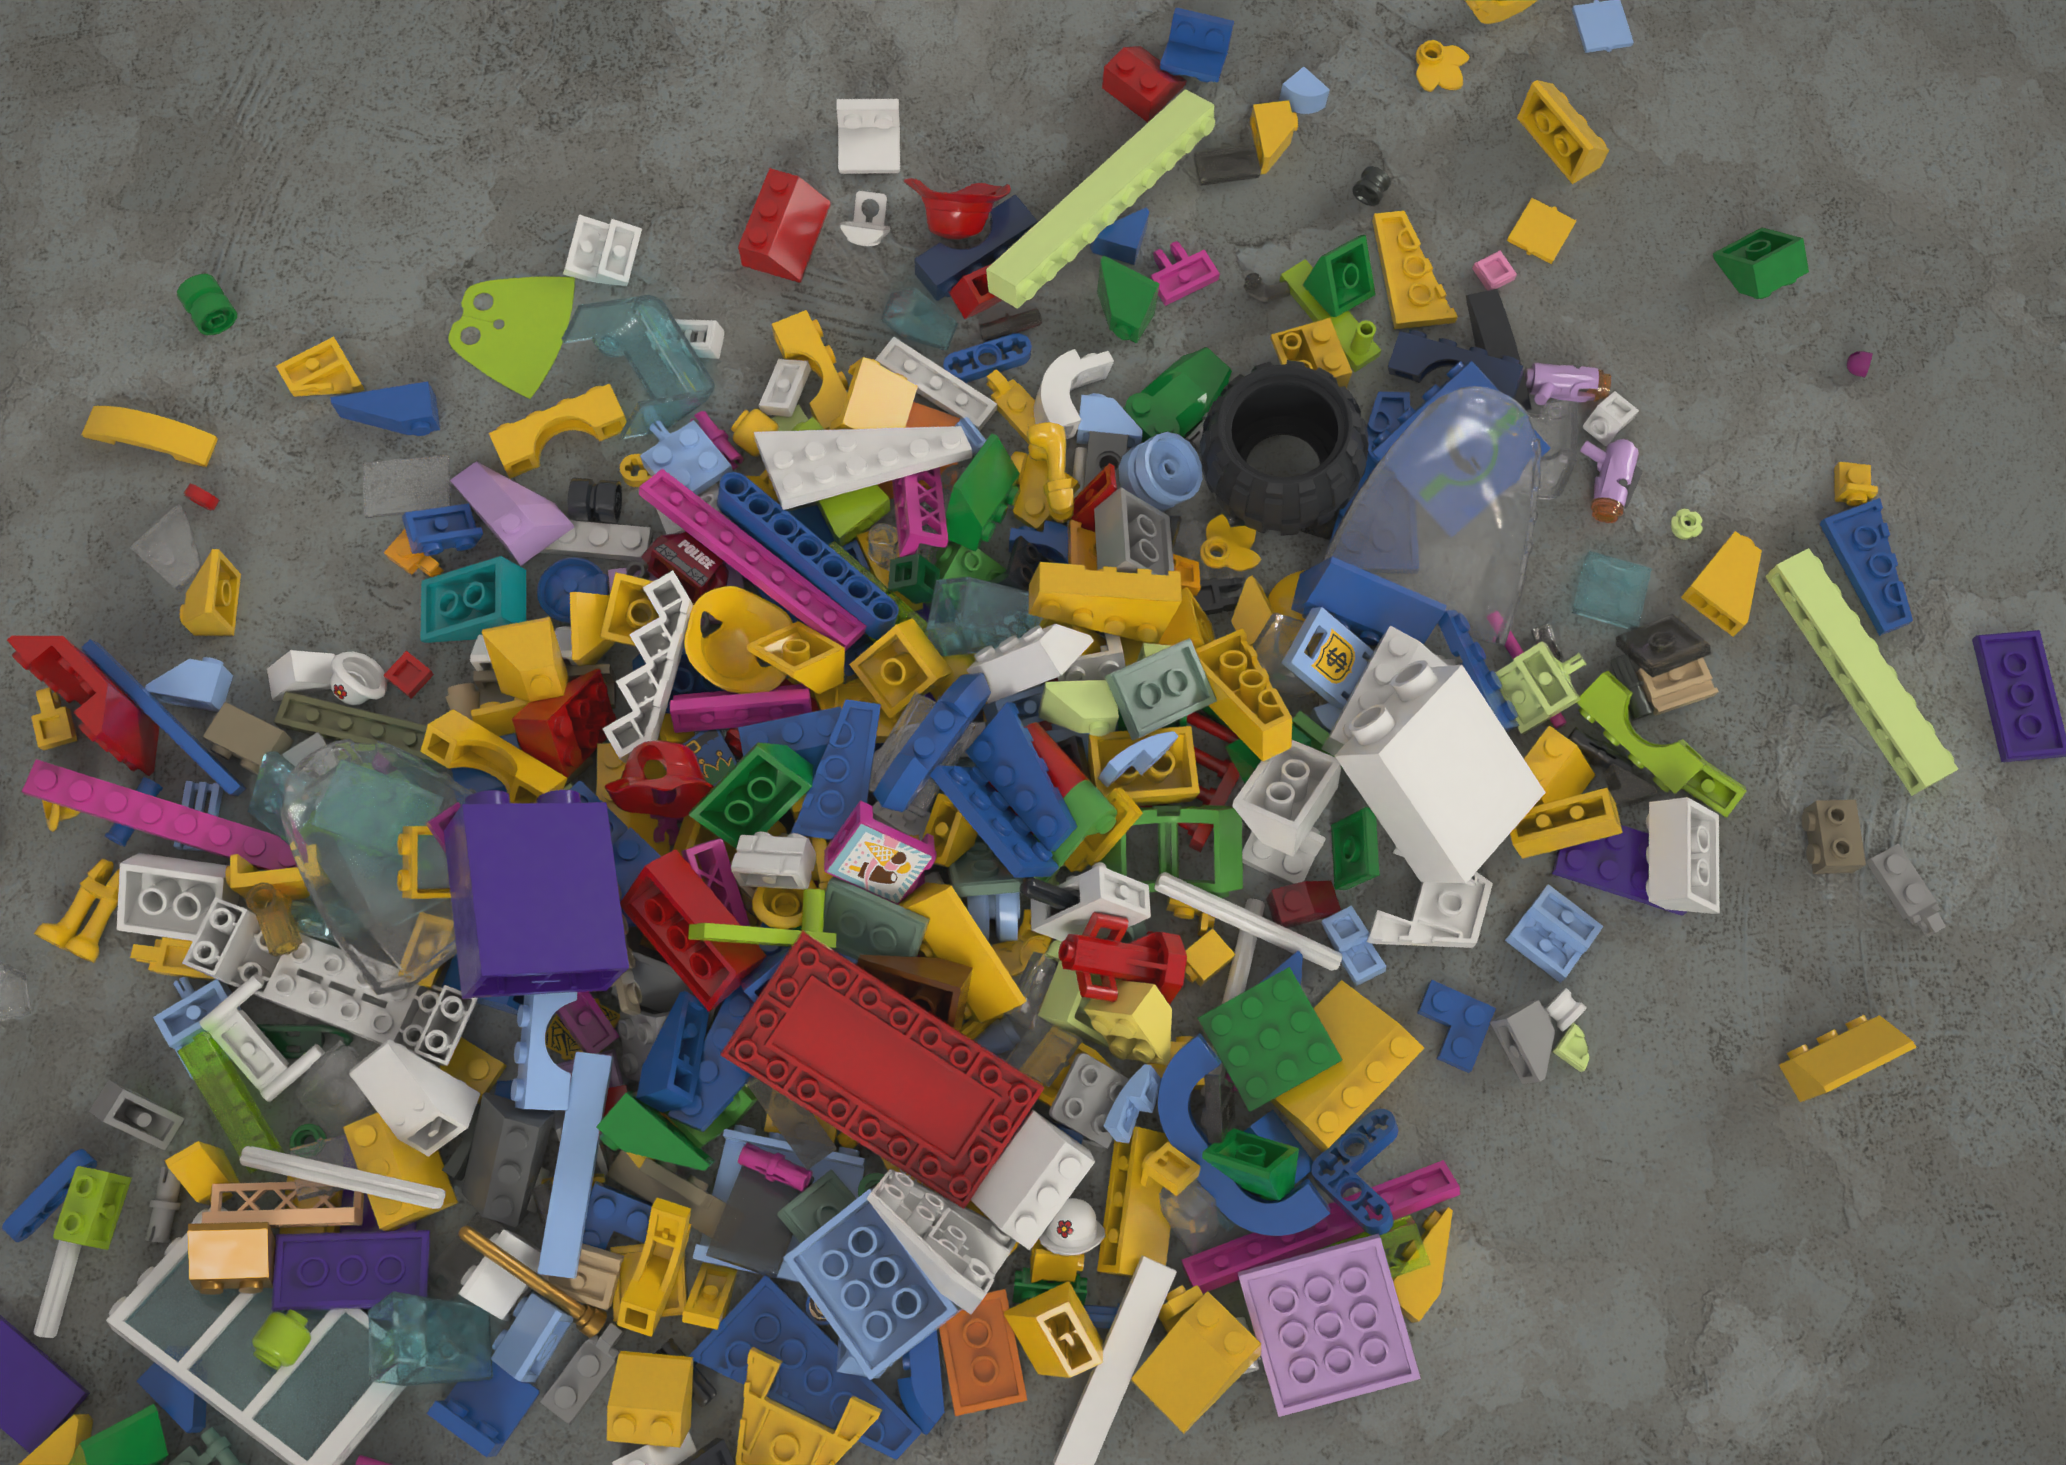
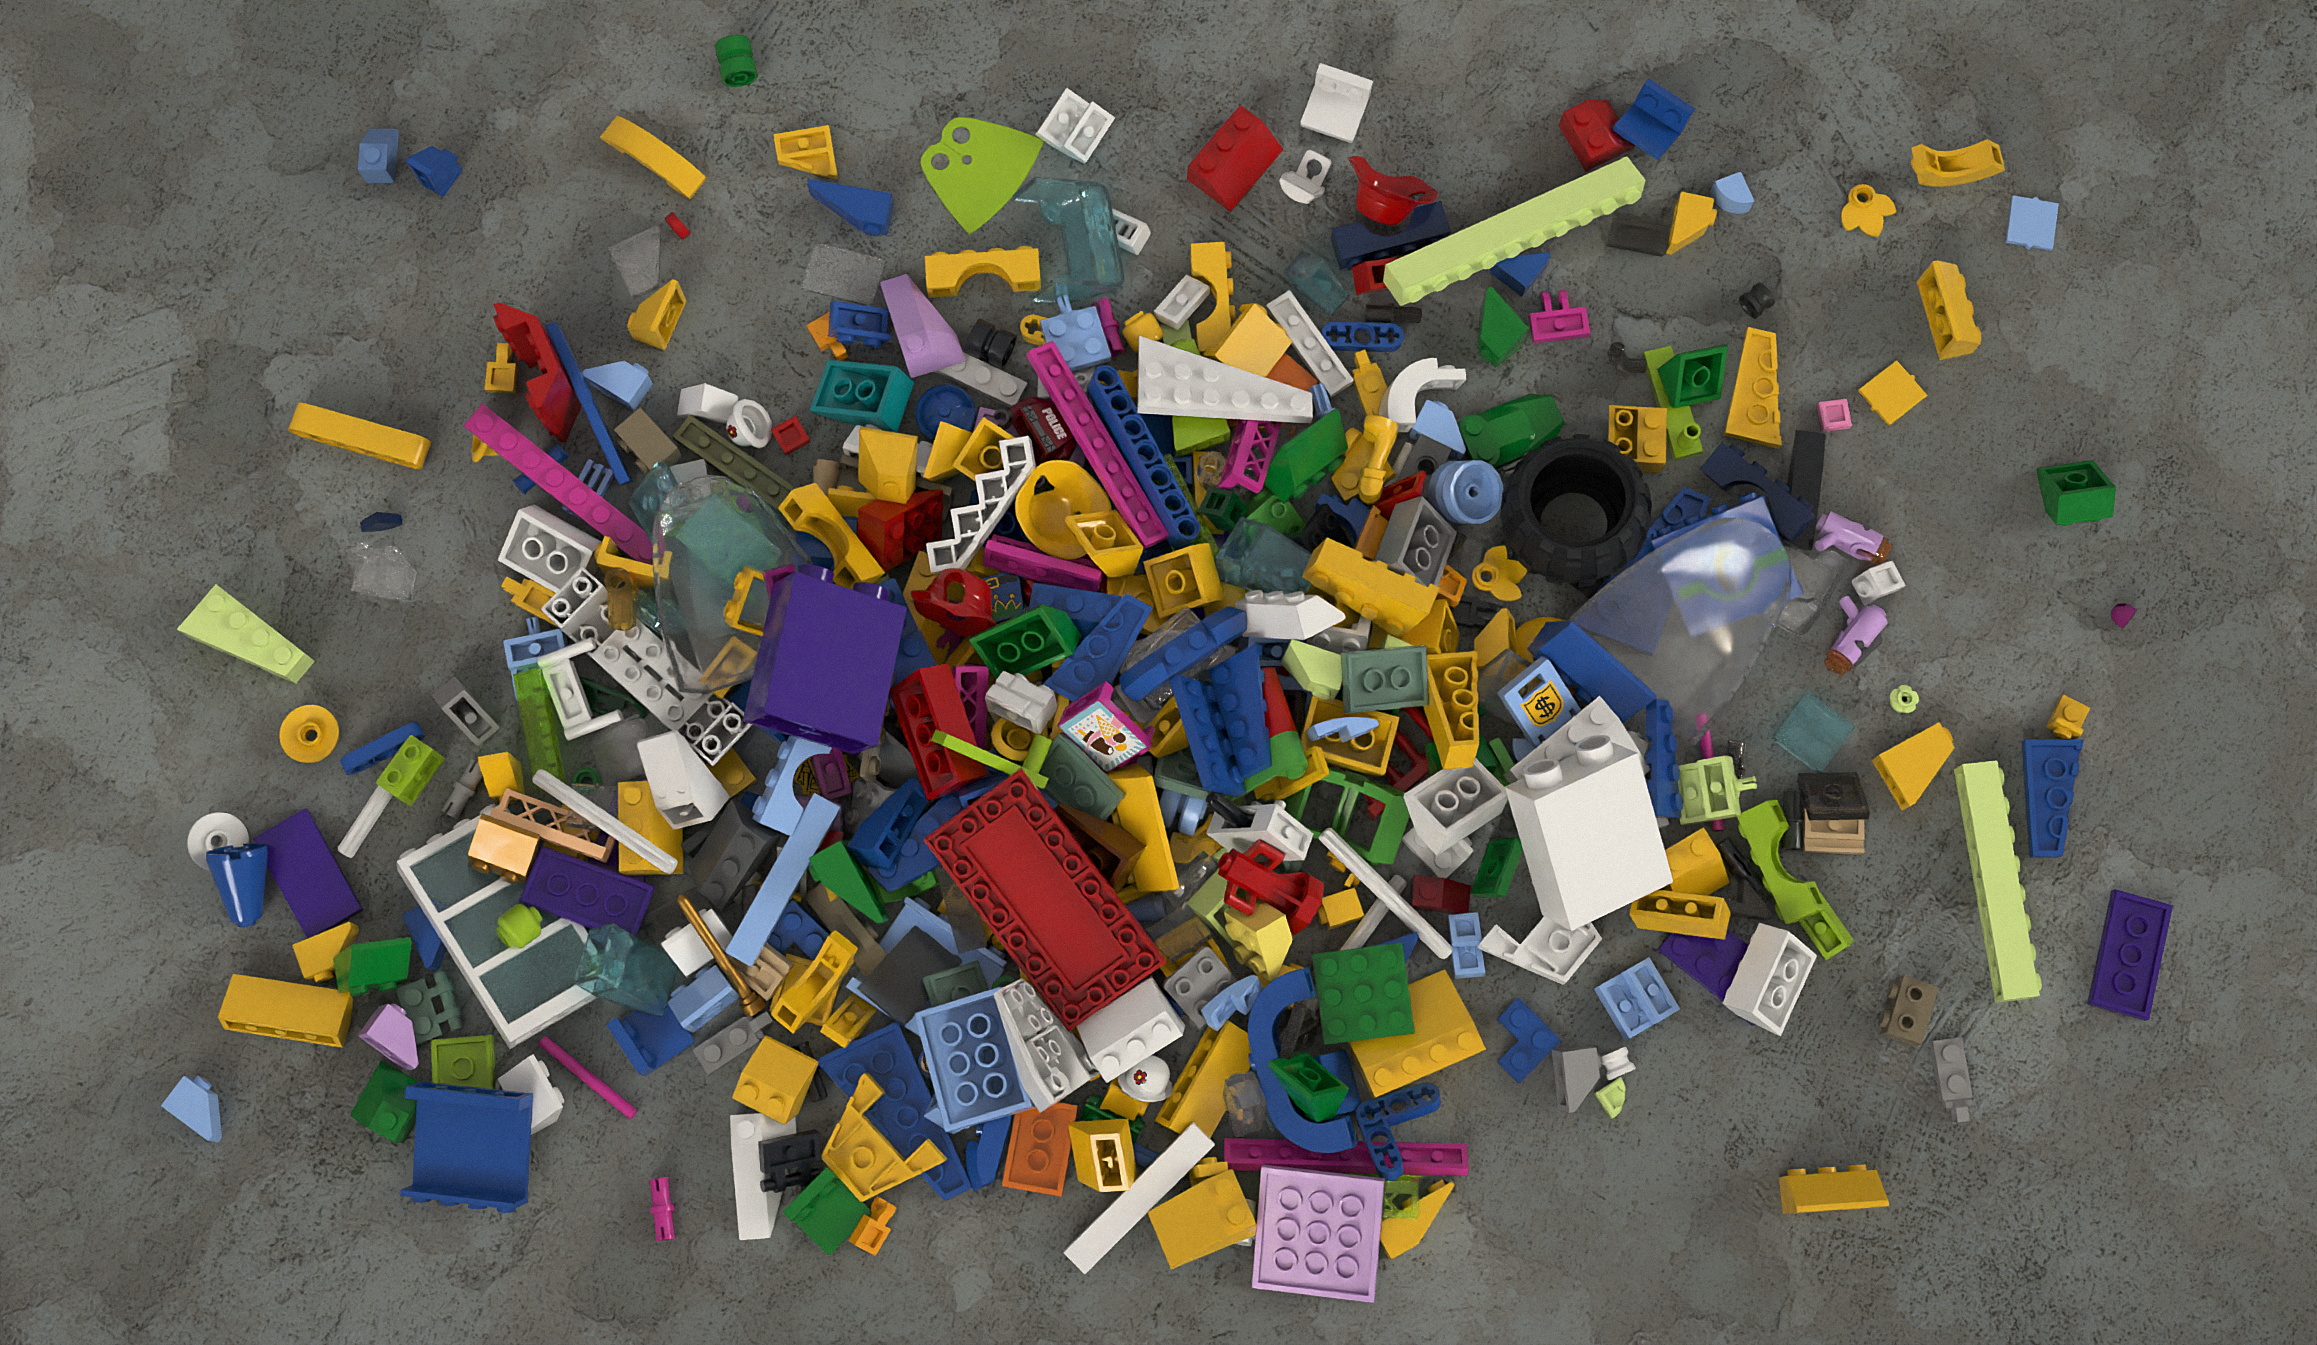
camera: 25 degrees right, 5 degrees up
(92, 887) = (456, 546): yellow piece -> none
(775, 1167) = (934, 941): dark pink pin -> none
(1169, 1169) = (1240, 1063): yellow bracket -> none

